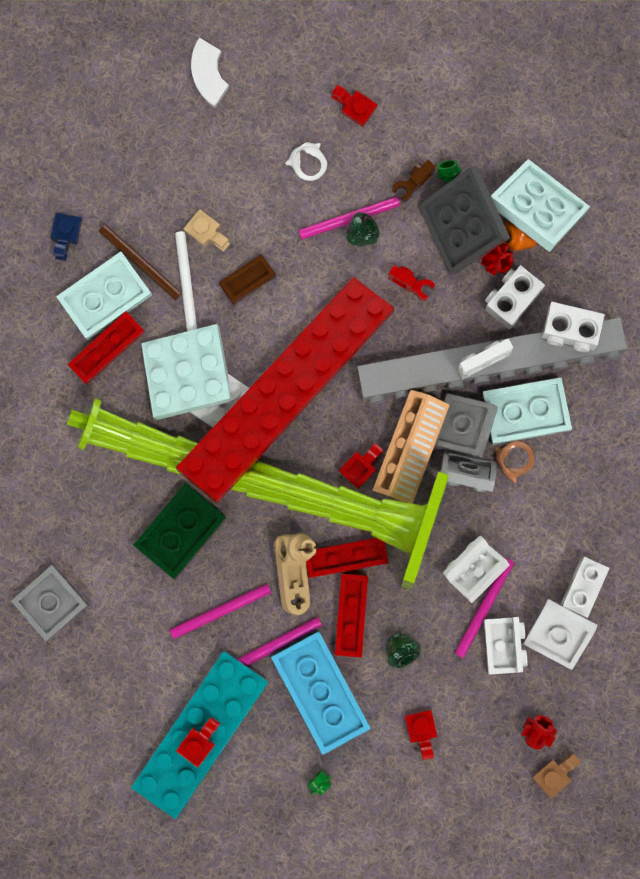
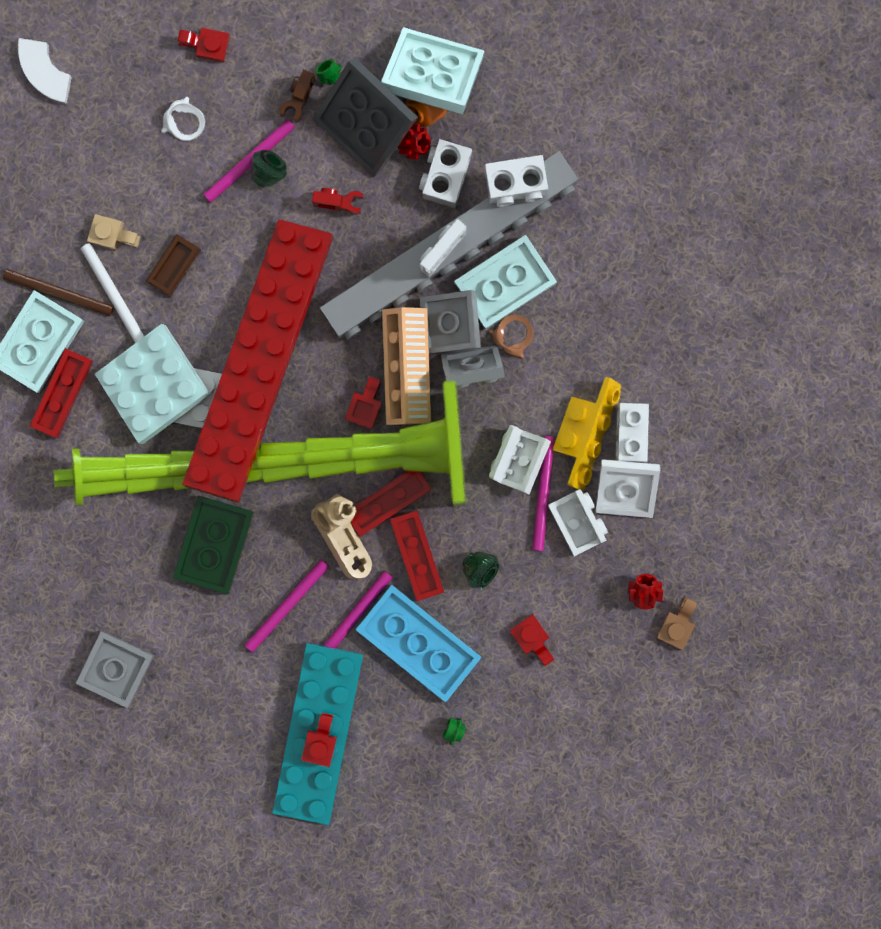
camera: 30 degrees left, 5 degrees up
(542, 568) = (584, 430): none -> yellow bracket

